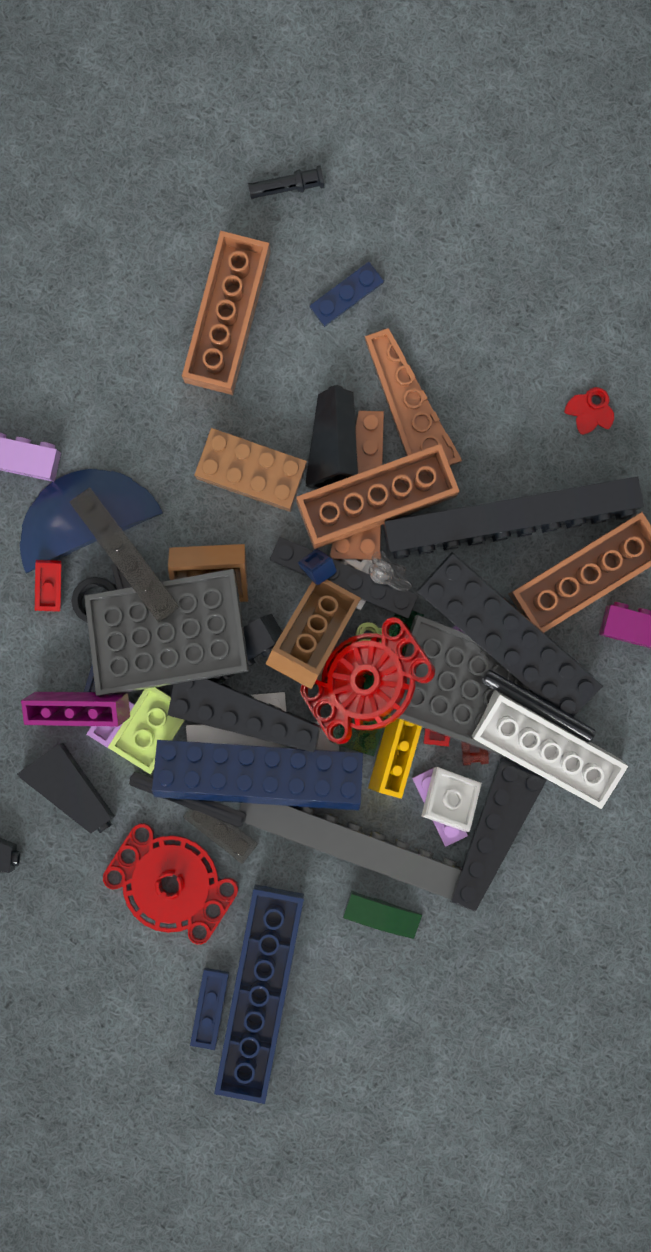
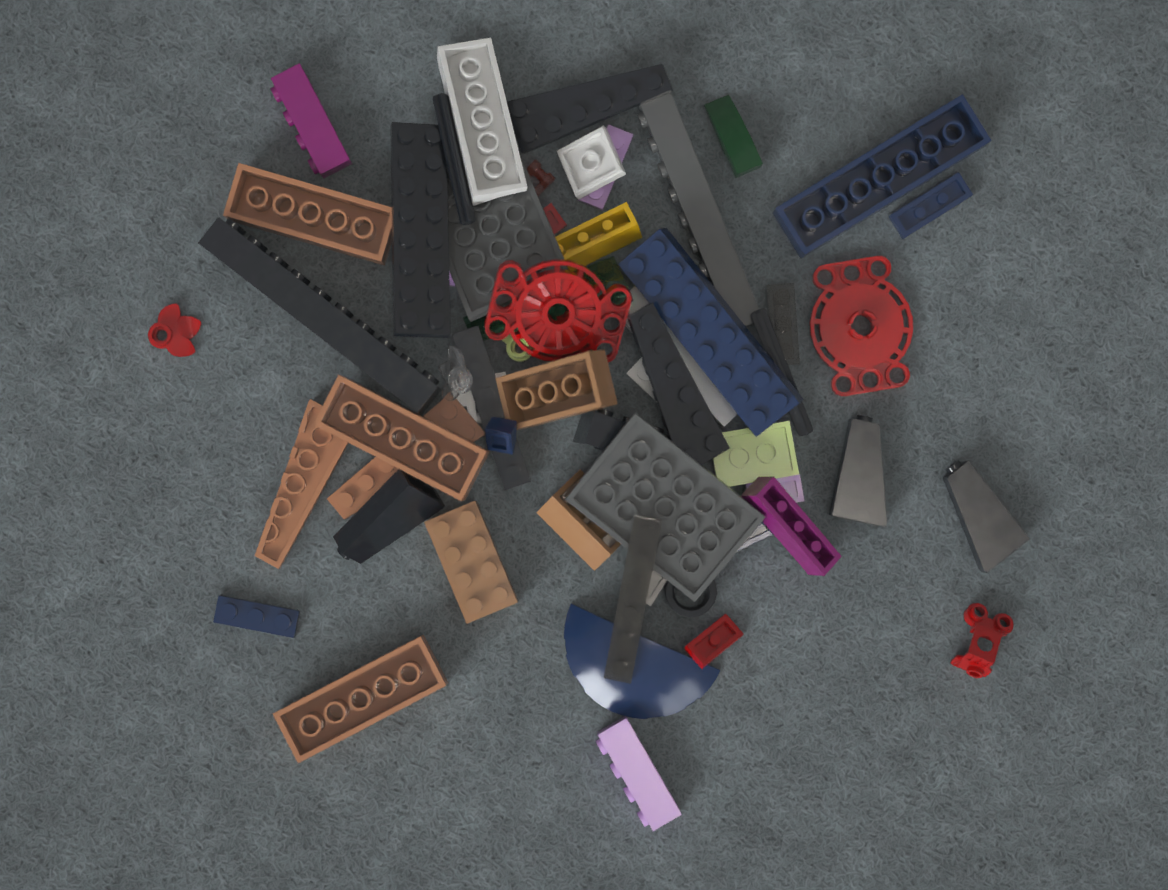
camera: 135 degrees left, 0 degrees up
(298, 181) = (197, 740): black pin -> none

